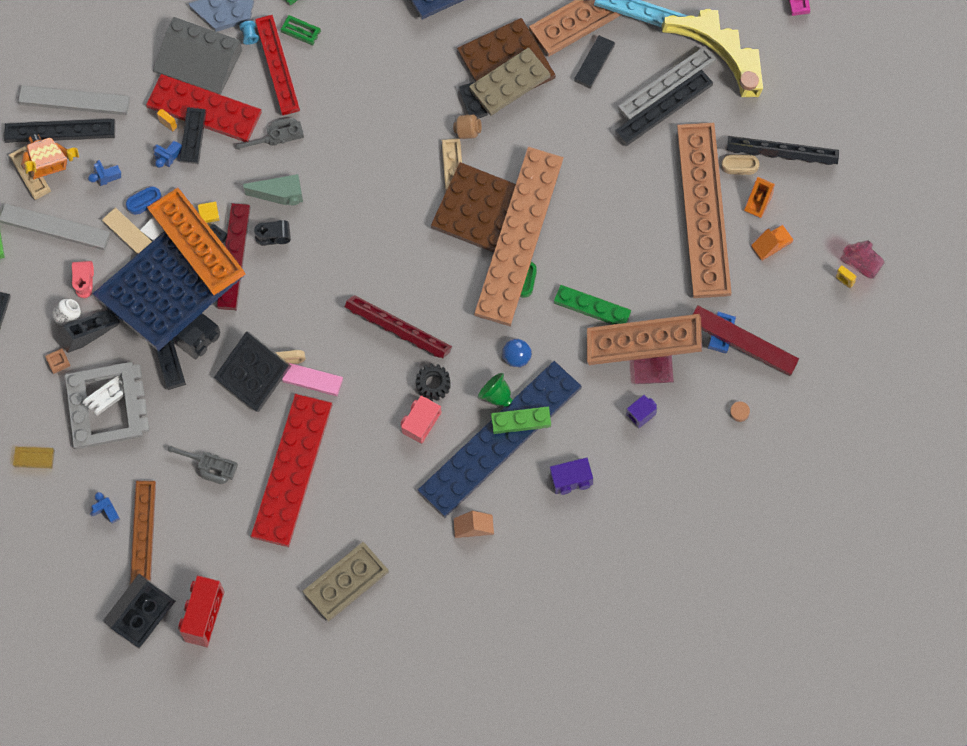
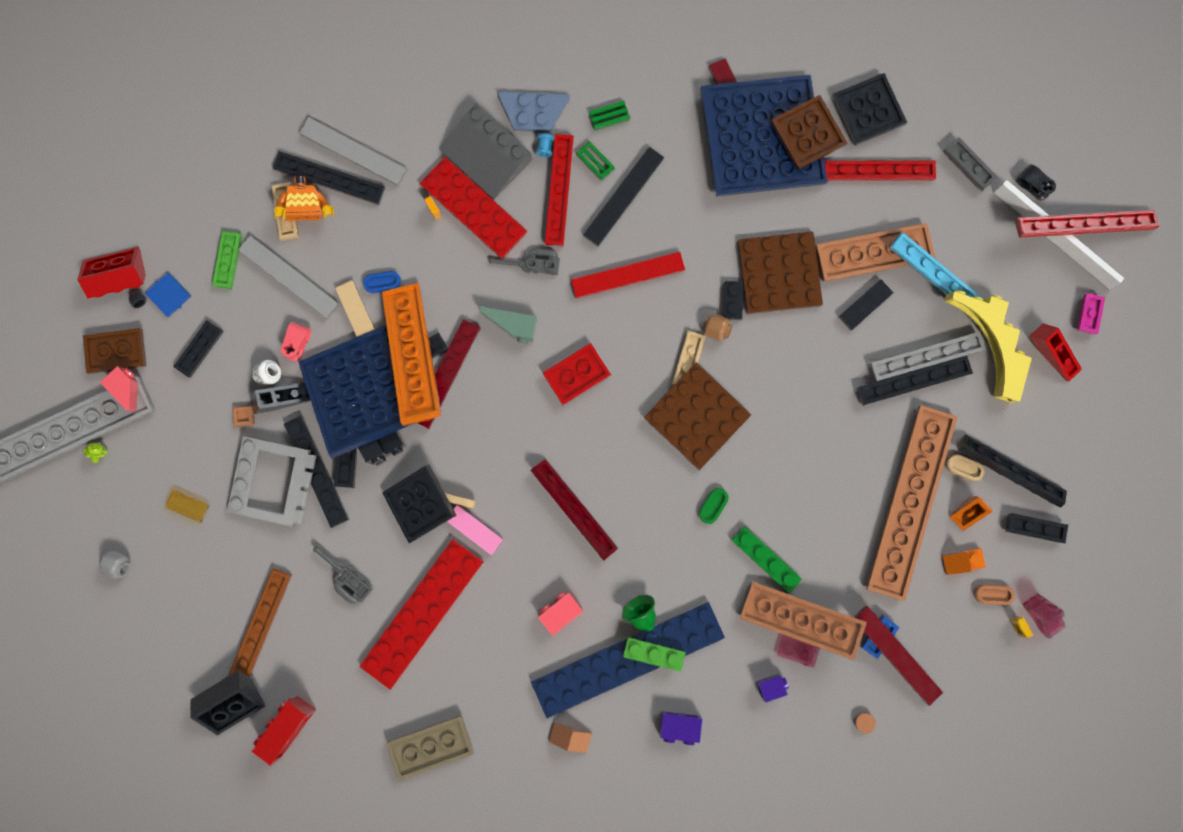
camera: 15 degrees right, 15 degrees up
(104, 176) = (353, 243): blue piece -> none
(104, 504) = (236, 584): blue piece -> none
(106, 396) = (272, 475): white hinge -> none
(152, 229) = (378, 316): white tile -> none
(153, 390) = (321, 480): none -> black plate
(168, 155) = (420, 246): blue piece -> none
(193, 135) = (451, 234): black tile -> none
(209, 212) = (438, 319): yellow tile -> none
(275, 233) = (495, 366): black piece -> none
(338, 50) = (623, 196): none -> black tile
(354, 212) = (576, 374): none -> red plate
(368, 114) = (628, 275): none -> red tile
(429, 372) = (577, 587): black tyre -> none
(509, 81) = (776, 296): dark tan plate -> none
(516, 353) = (676, 579): blue hair -> none
(519, 236) = (724, 462): nougat plate -> none
(749, 80) = (1010, 390): tile -> none
(779, 37) = (1056, 350): none -> red slope
(811, 260) = (994, 594): none -> nougat tile
(825, 190) = (1037, 528): none -> black plate

